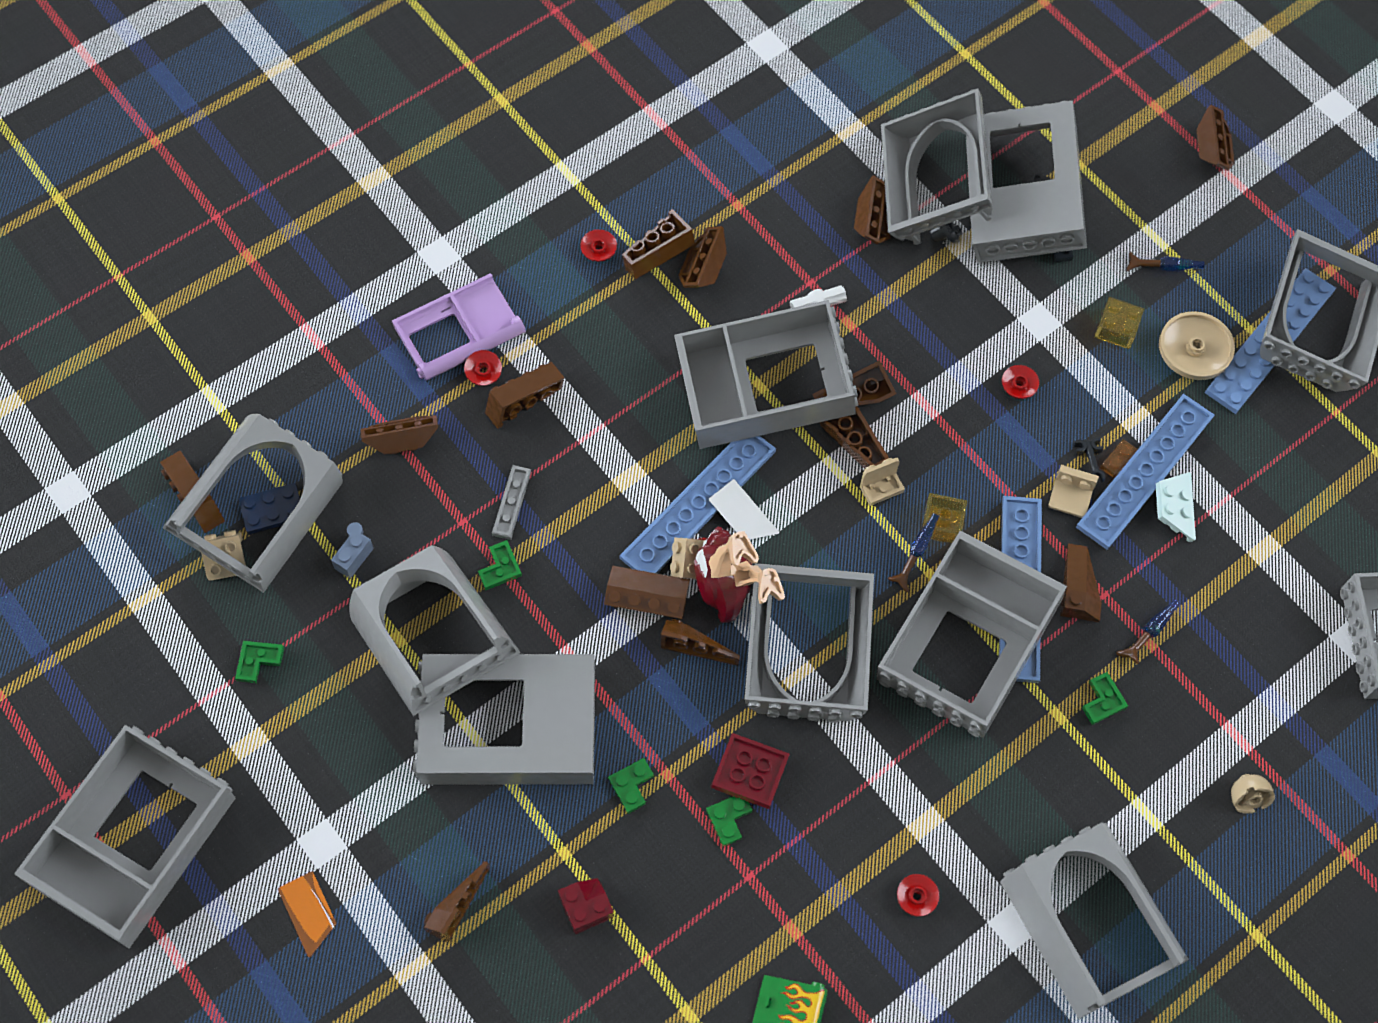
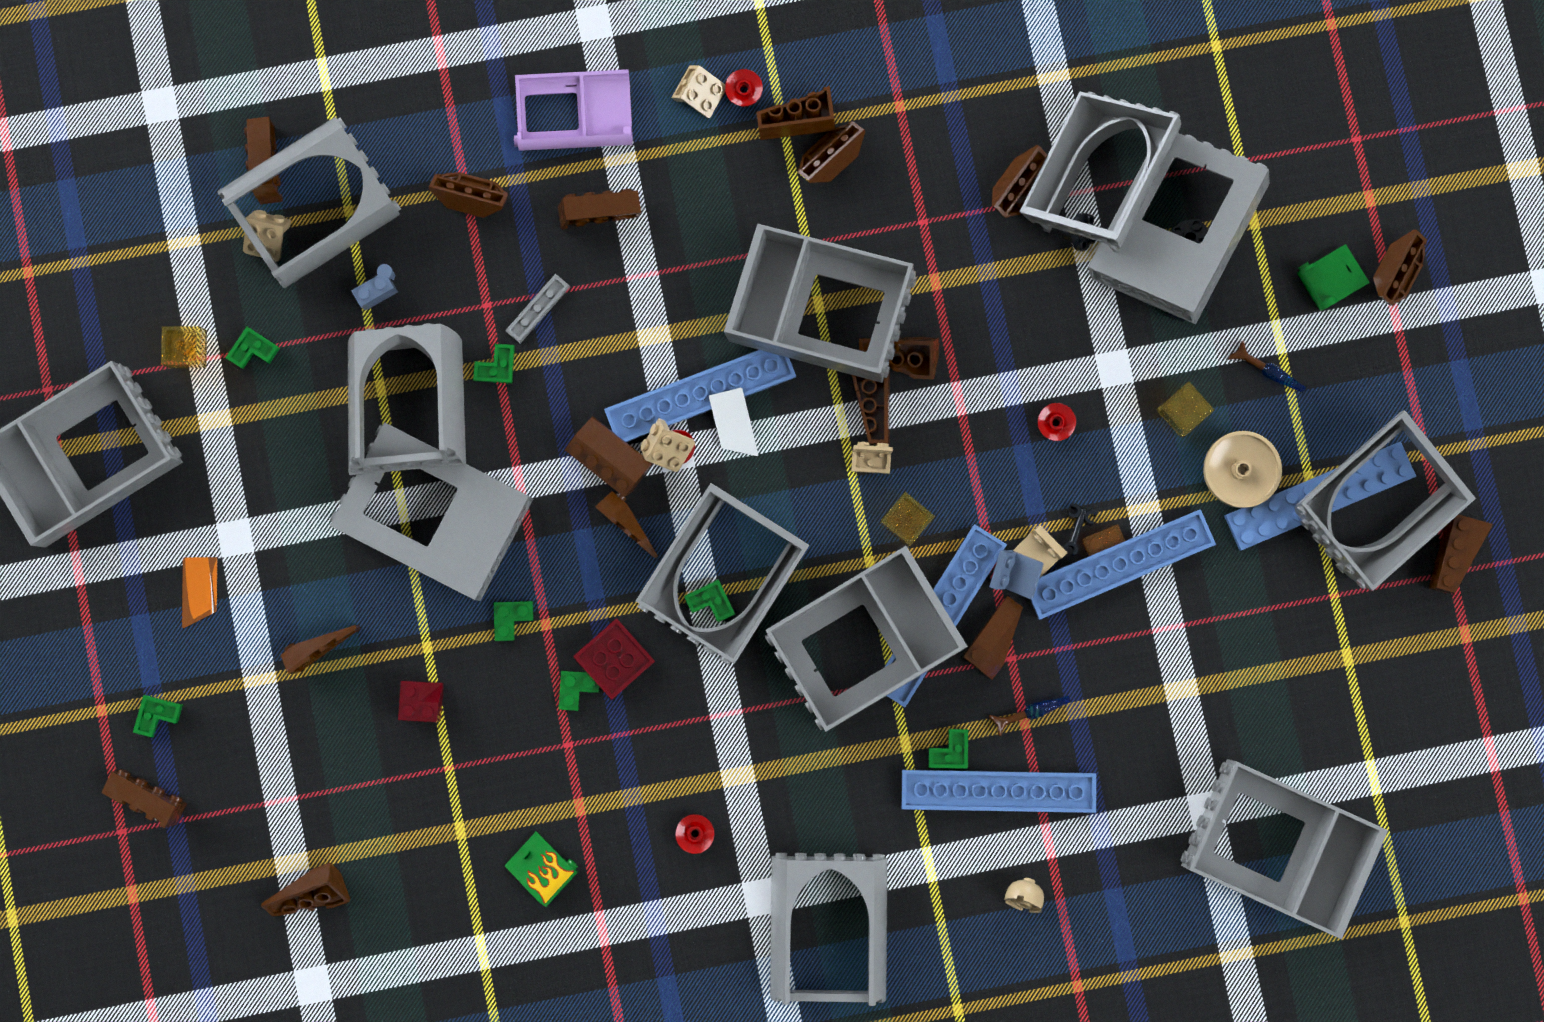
camera: 30 degrees right, 20 degrees up
(190, 686) = (184, 347): none -> clear yellow brick
(268, 508) = (325, 208): dark blue plate -> none
(479, 360) = (565, 162): red dish -> none
(561, 263) = (699, 90): none -> tan bracket
(726, 573) = (682, 481): animal -> none
(809, 670) = (711, 595): none -> green plate
(834, 295) = (917, 247): white piece -> none
(917, 550) = (864, 538): clear blue piece -> none
(1067, 516) = (1016, 573): none -> sand blue bracket
(1166, 713) = (998, 791): none -> medium blue plate
(1168, 173) = (1332, 277): none -> green door
(1176, 504) = (1126, 610): light aqua wing -> none

